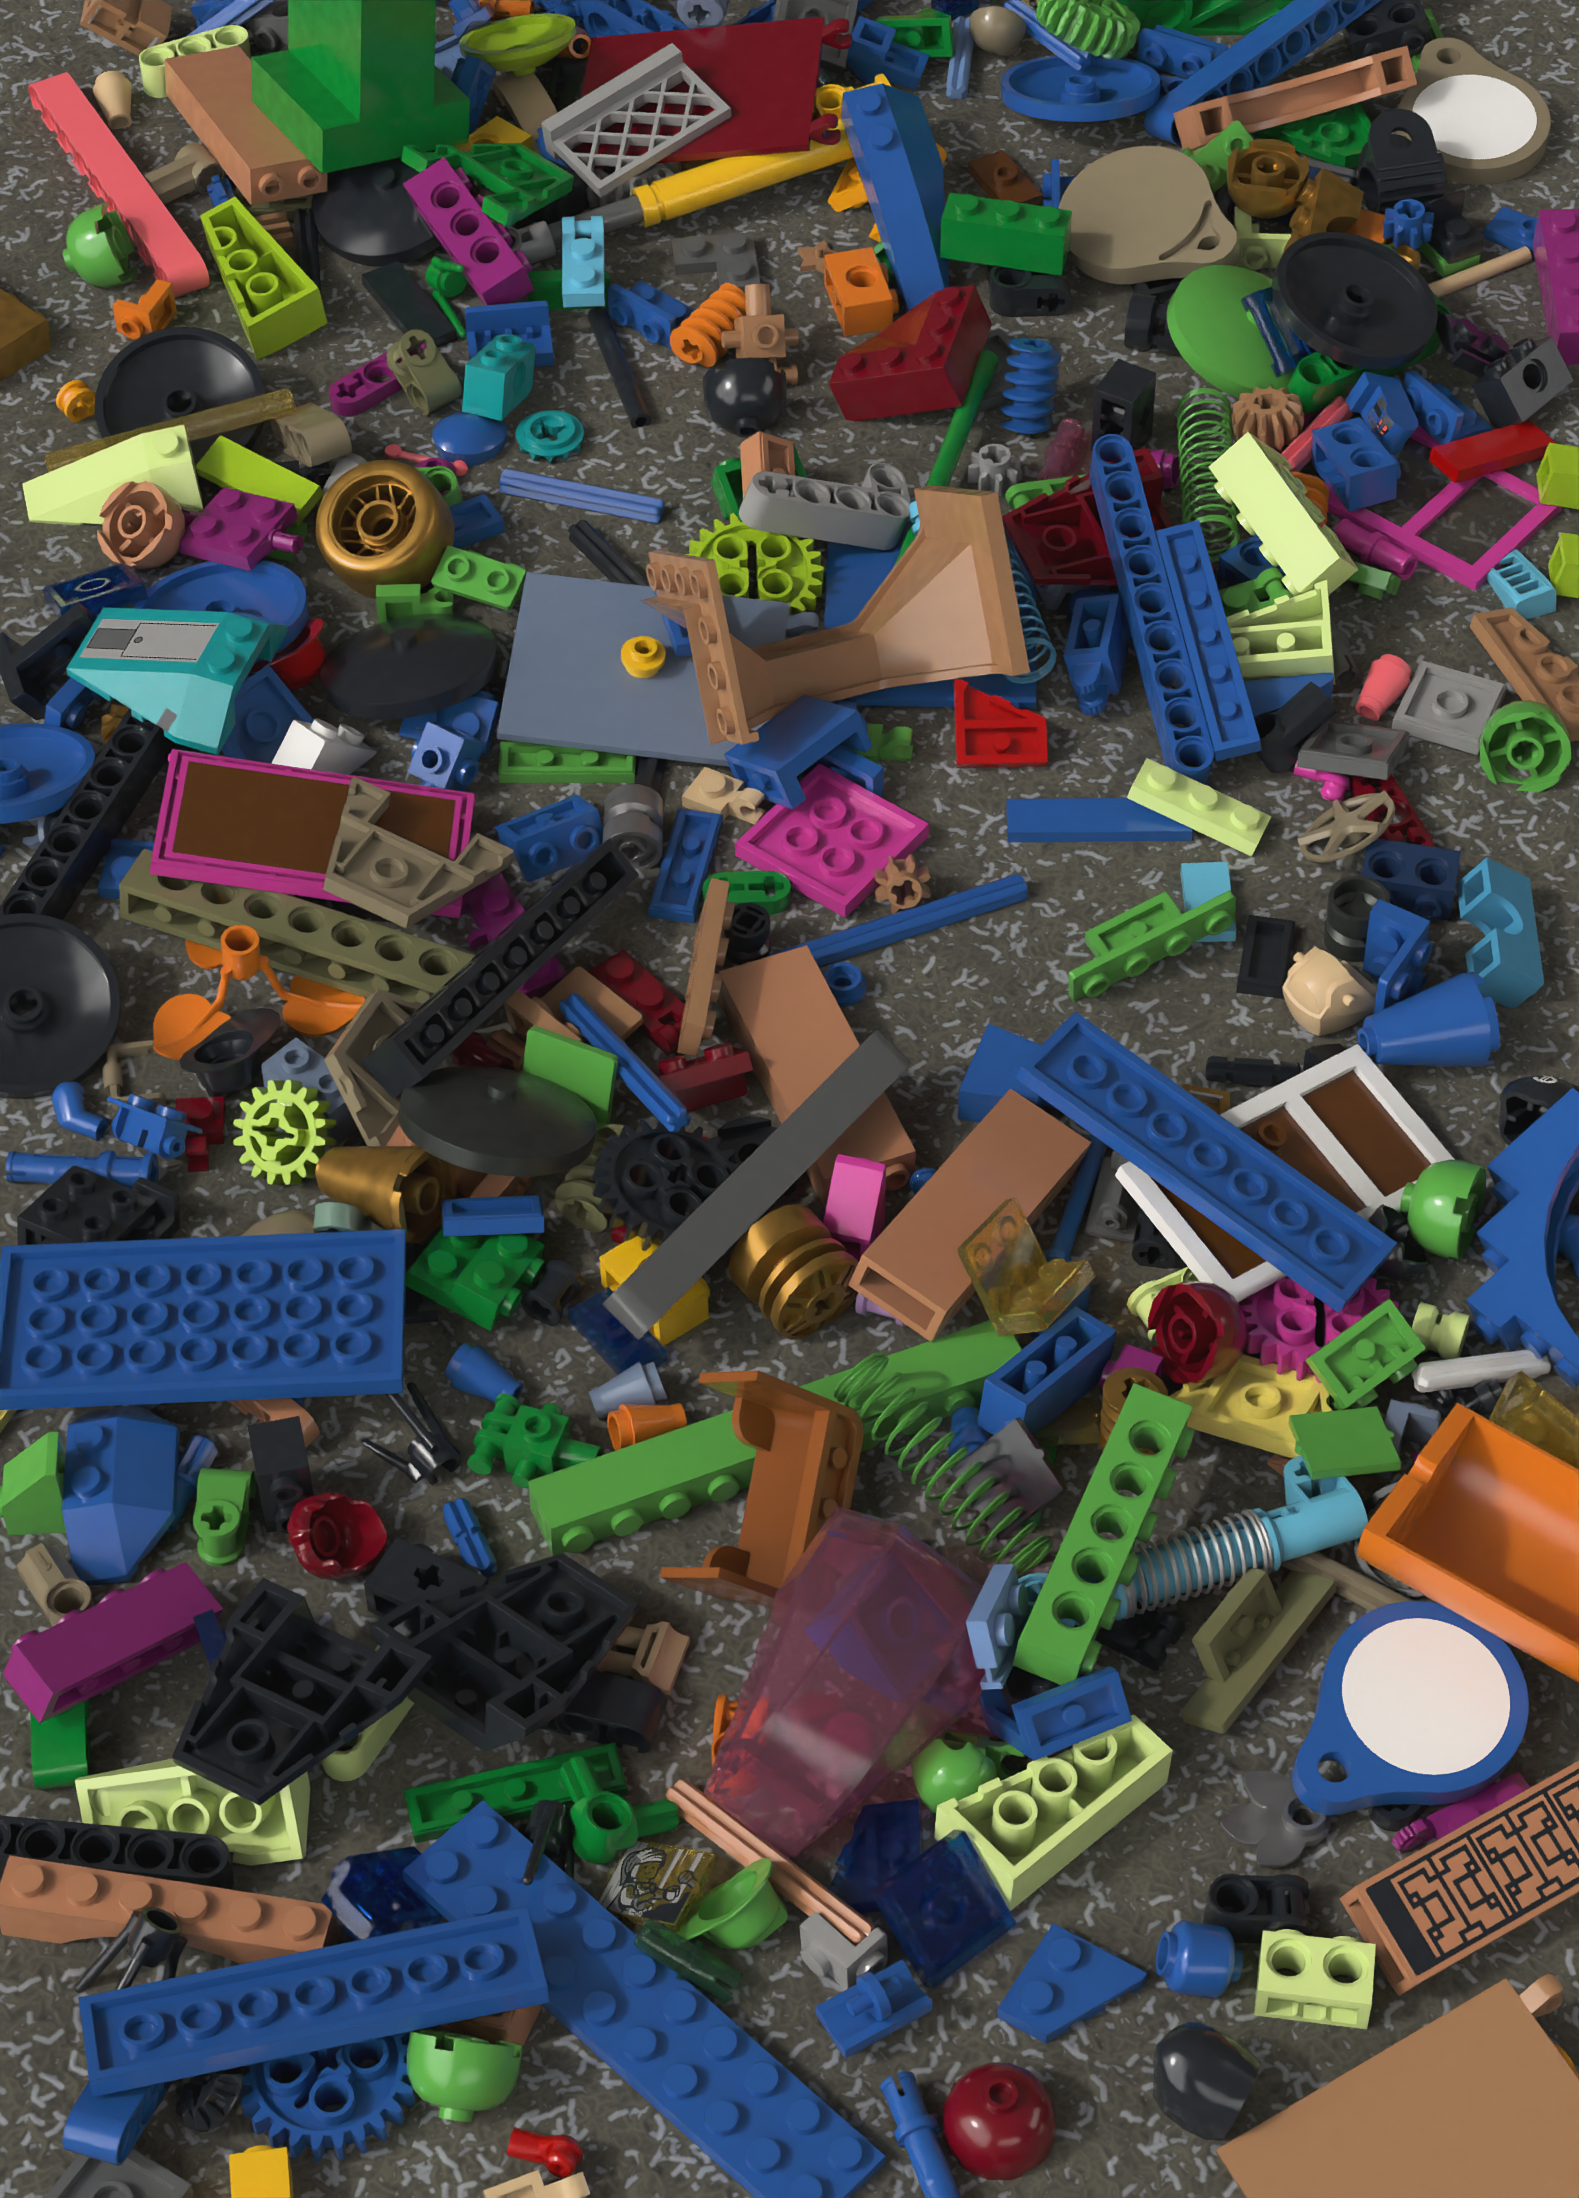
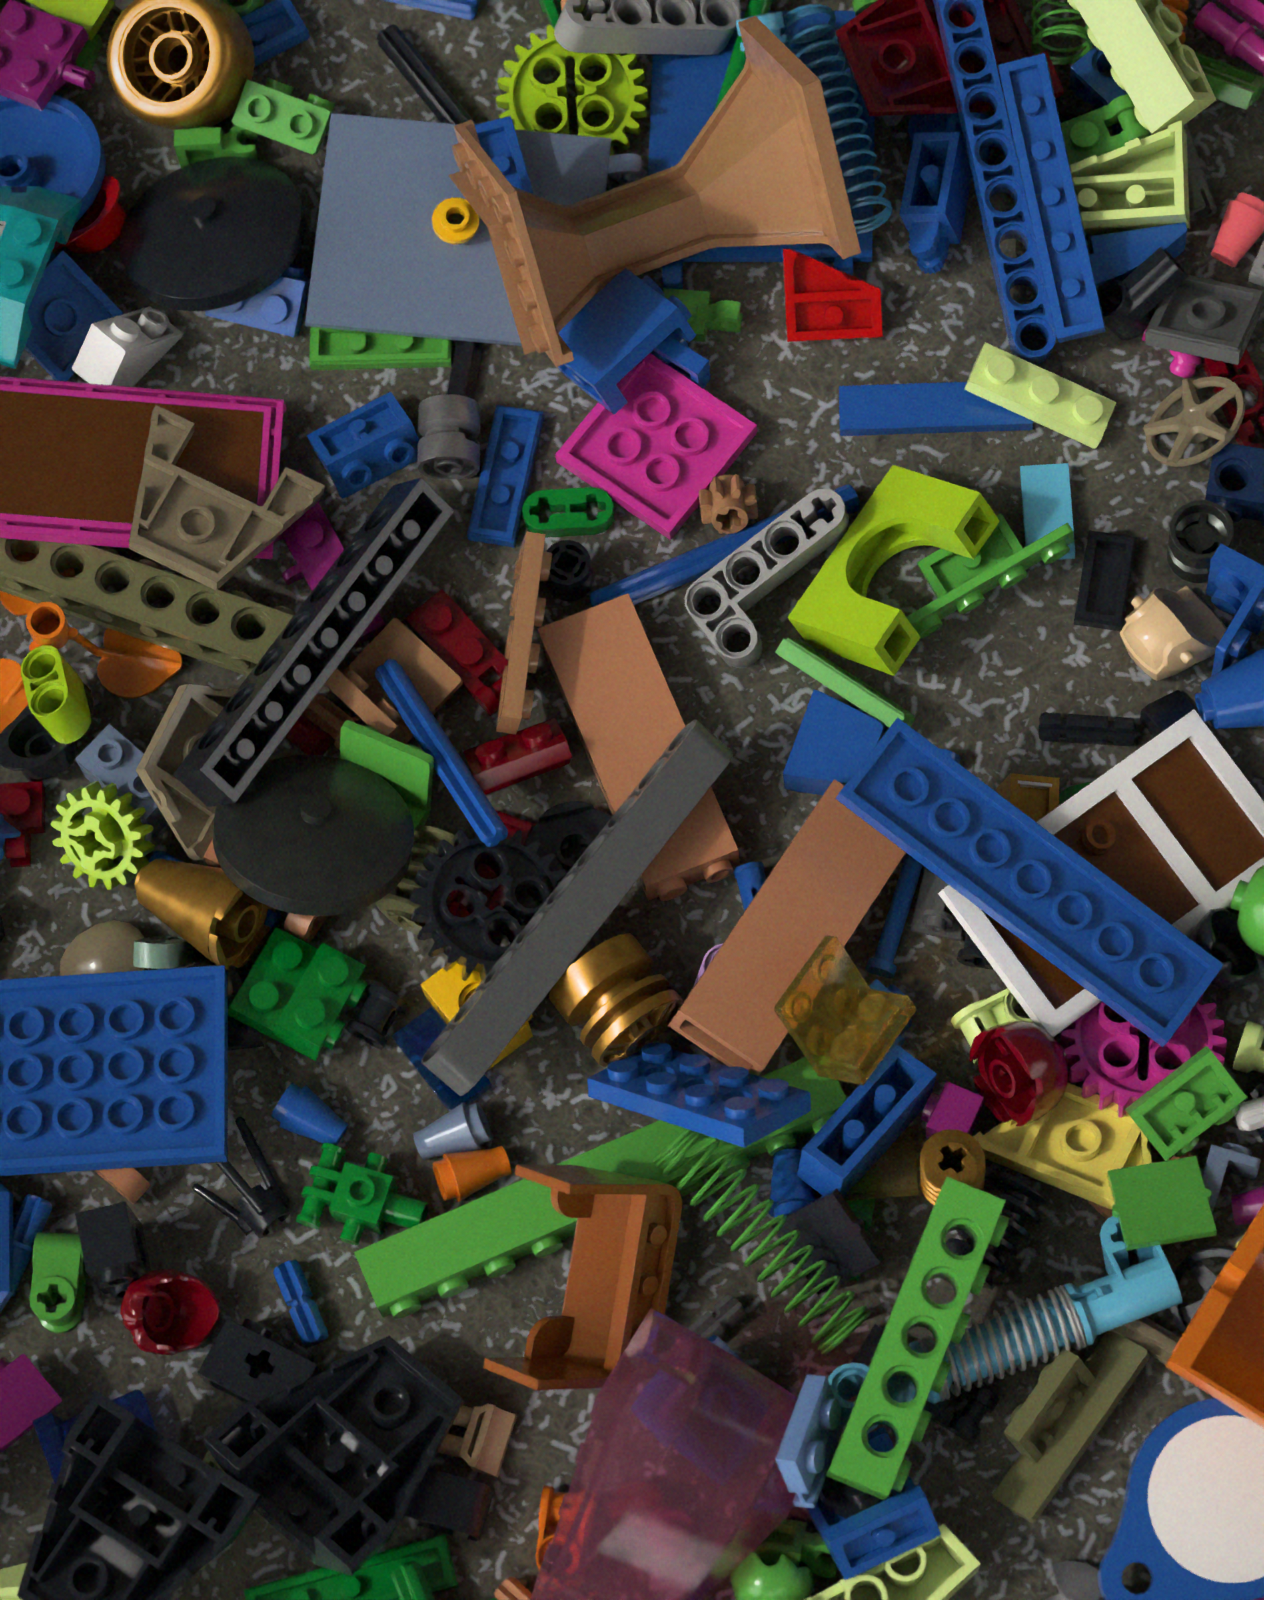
camera: 10 degrees right, 20 degrees up
(245, 1008) = (55, 694): none -> lime beam
(445, 757) = (253, 353): blue brick -> none
(492, 1215) = (312, 941): blue tile -> none
(723, 795) = (540, 385): tan plate -> none
(848, 975) = (663, 615): blue plate -> none
(856, 1203) = (676, 923): dark pink slope -> none
(880, 1335) = (699, 1094): none -> blue plate
(987, 896) = (773, 571): none -> light grey beam
(989, 1011) = (843, 682): none -> bright green tile
(1018, 963) = (899, 515): none -> lime arch
(1193, 1475) = (1017, 1207): none -> black piece

